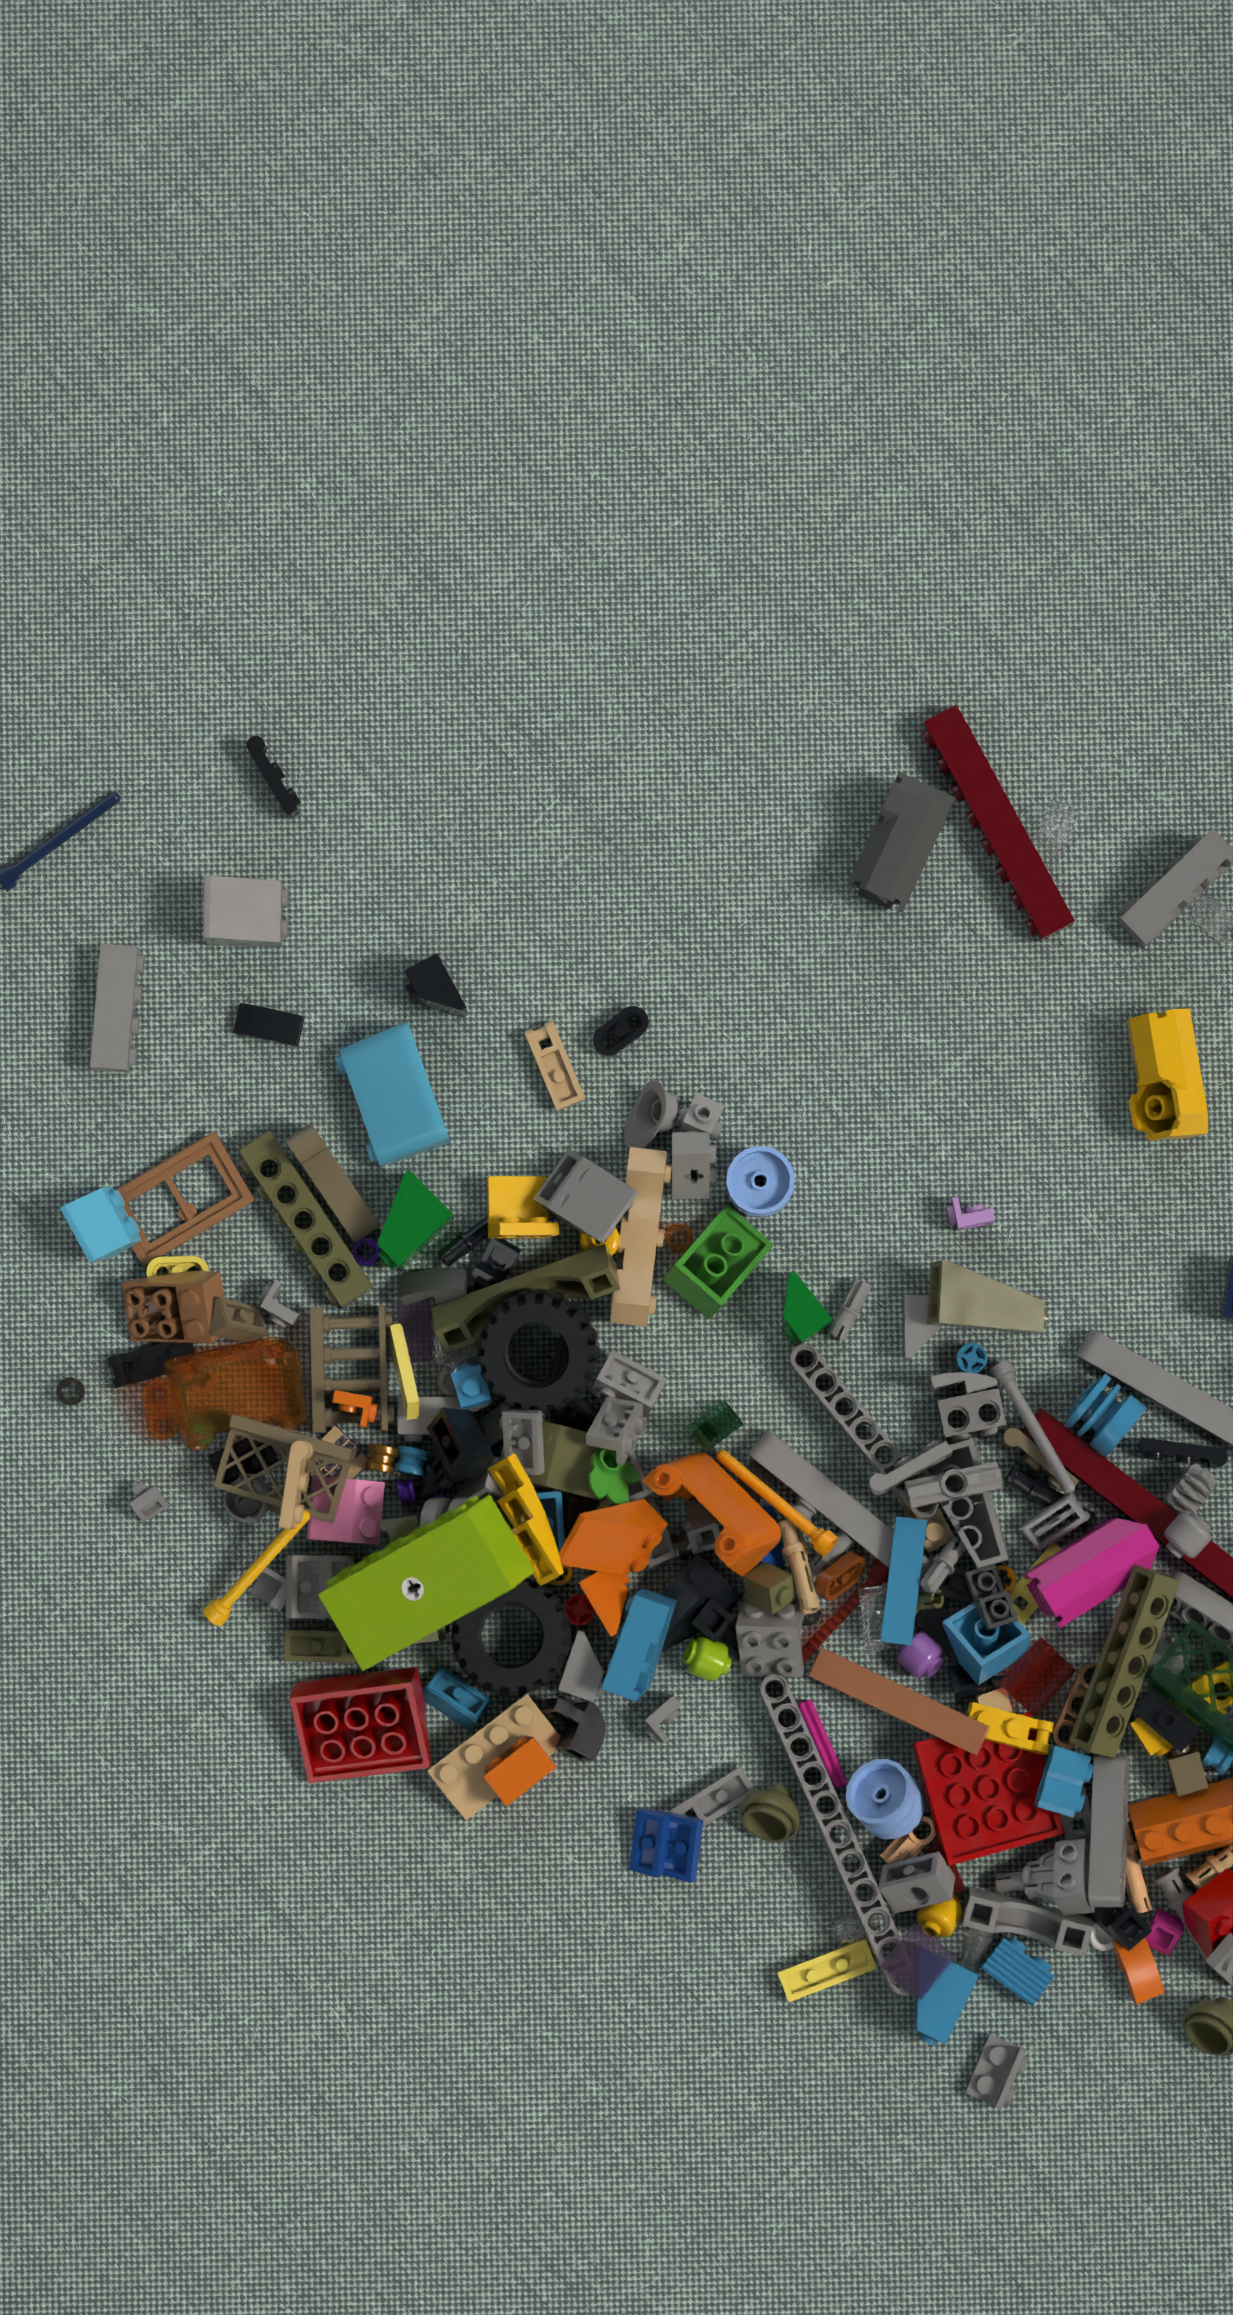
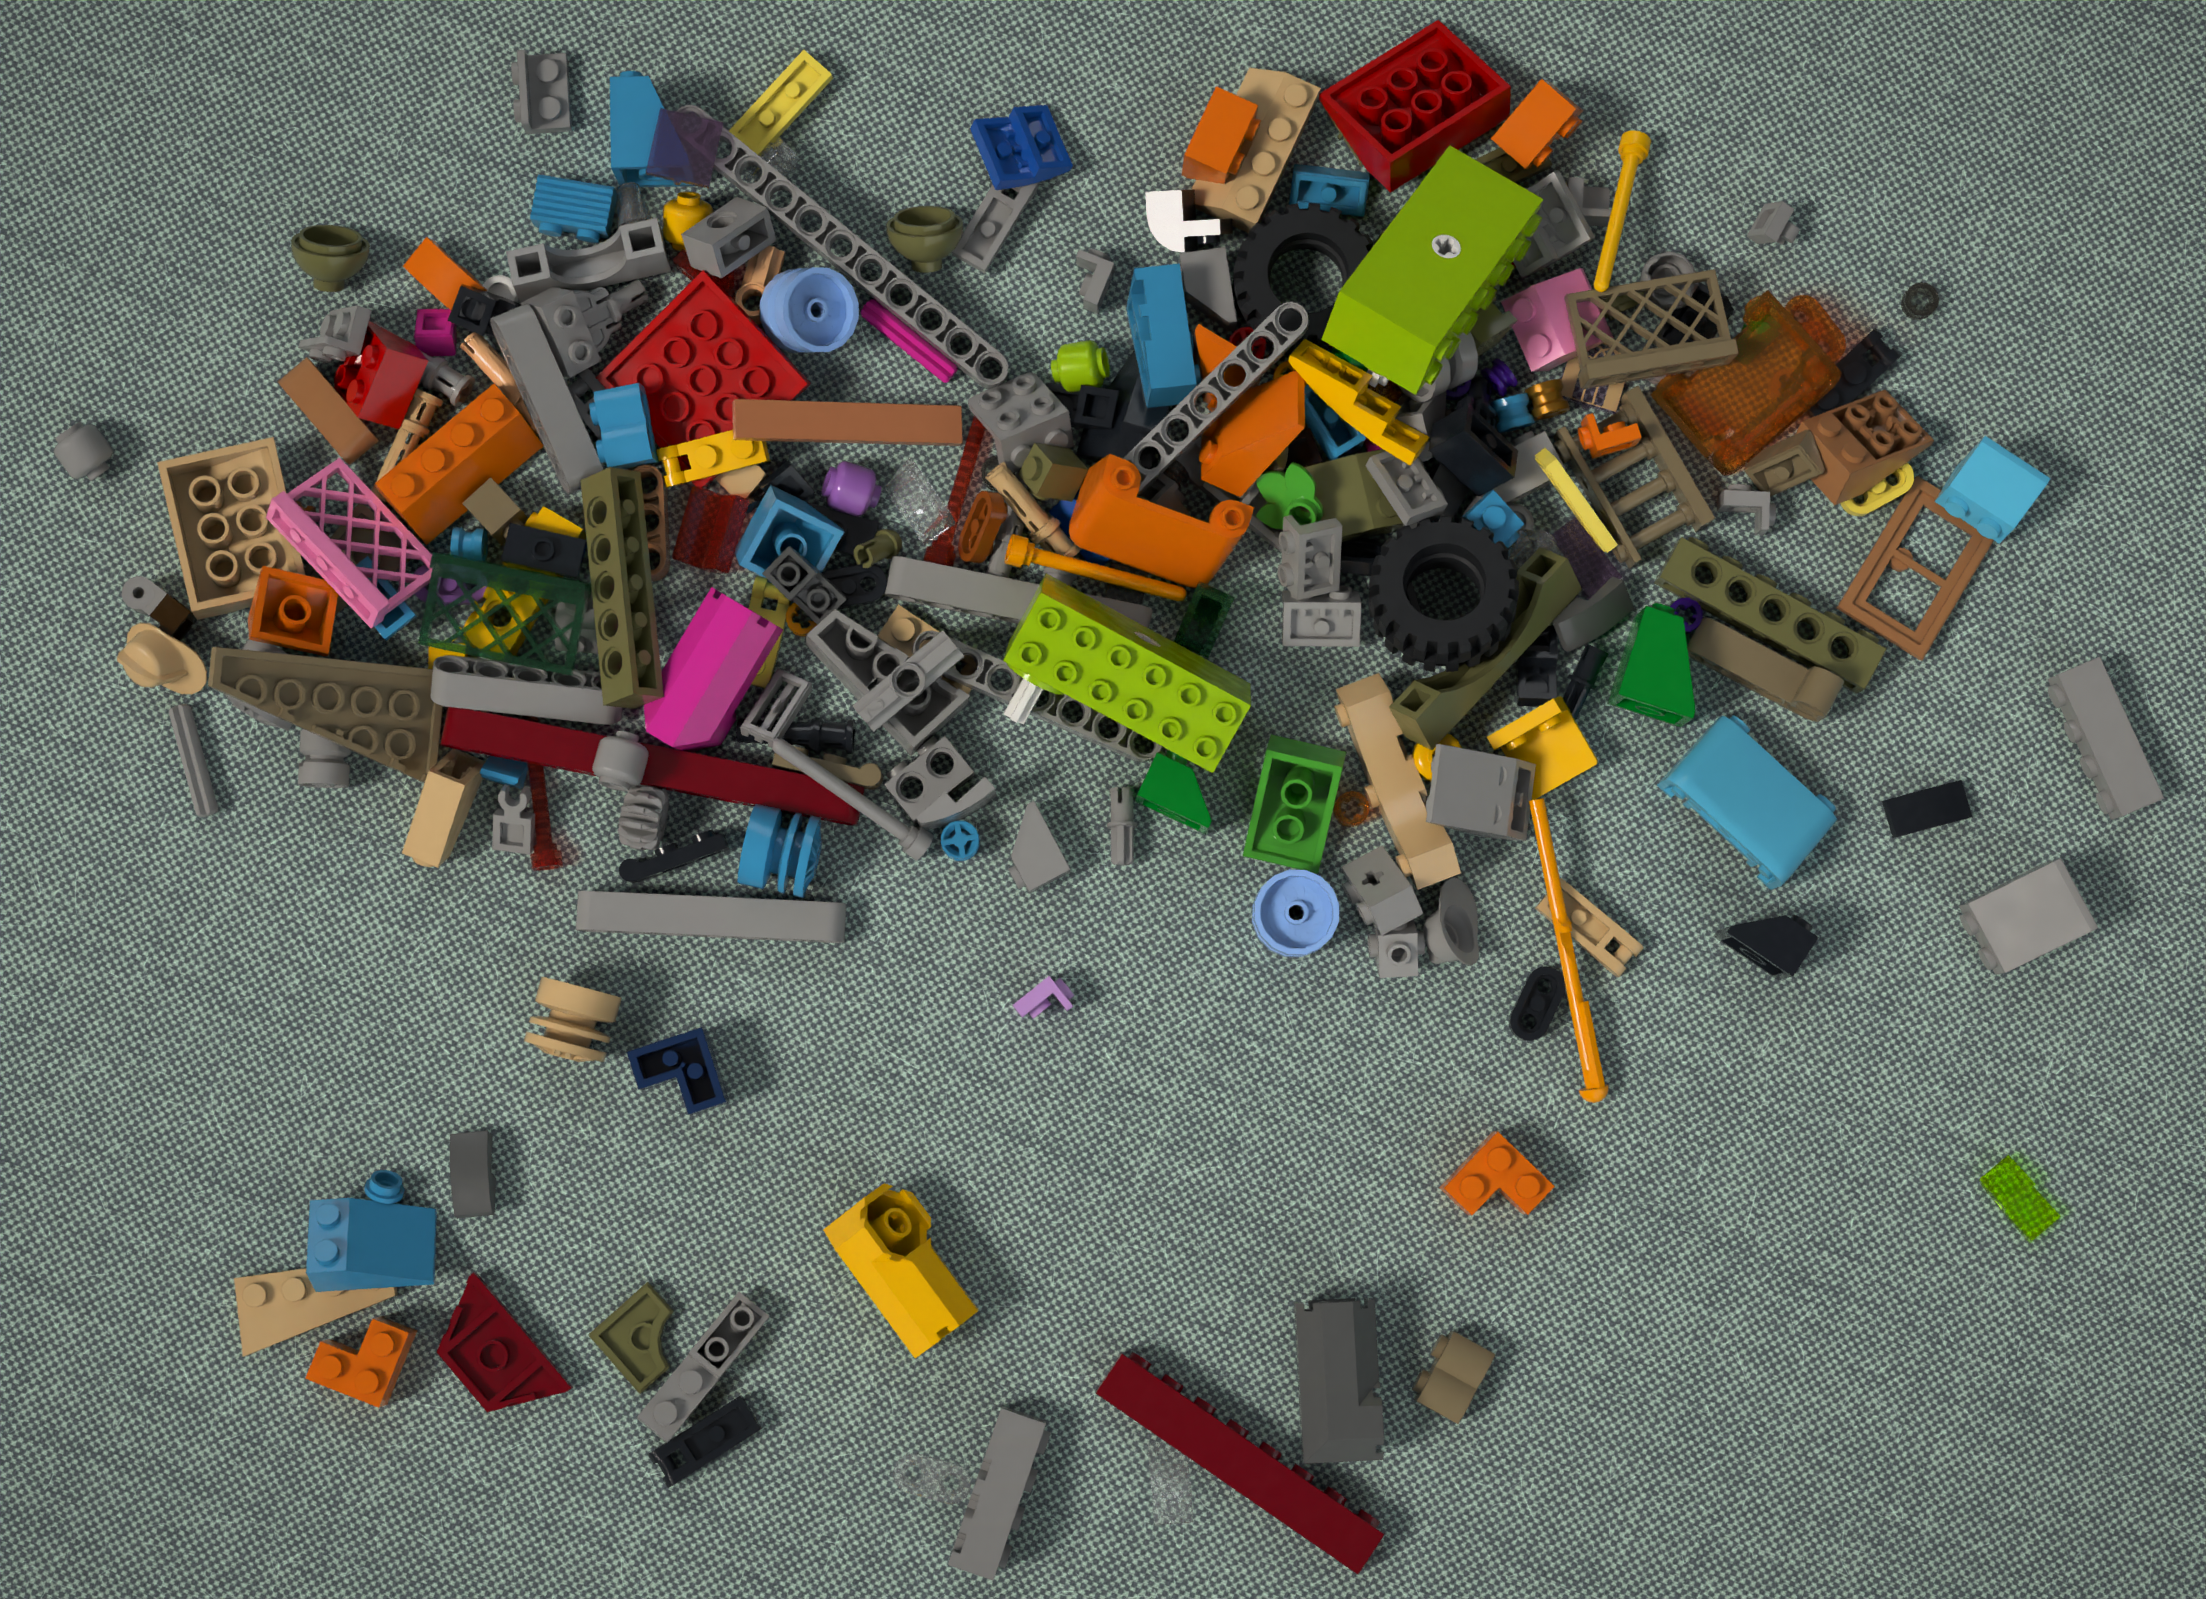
camera: 145 degrees right, 0 degrees up
(273, 774) = (2076, 1088): black plate -> none
(275, 1664) = (1536, 123): none -> orange brick
(295, 1484) = (1631, 306): tan plate -> none
(354, 721) = (2019, 1199): none -> clear neon green slope
(611, 951) = (1595, 1087): none -> light orange bar
(621, 1575) = (1225, 394): none -> light grey beam
(711, 932) = (1492, 1168): none -> orange brick
(795, 1410) = (1125, 673): none -> lime piece
(818, 804) = (1453, 1376): none -> dark tan brick
(903, 1580) = (910, 554): dark azure tile -> none
(908, 1468) = (967, 674): light grey plate -> none
(942, 1565) = (876, 592): light grey axle -> none
(978, 1302) = (987, 901): olive slope -> none

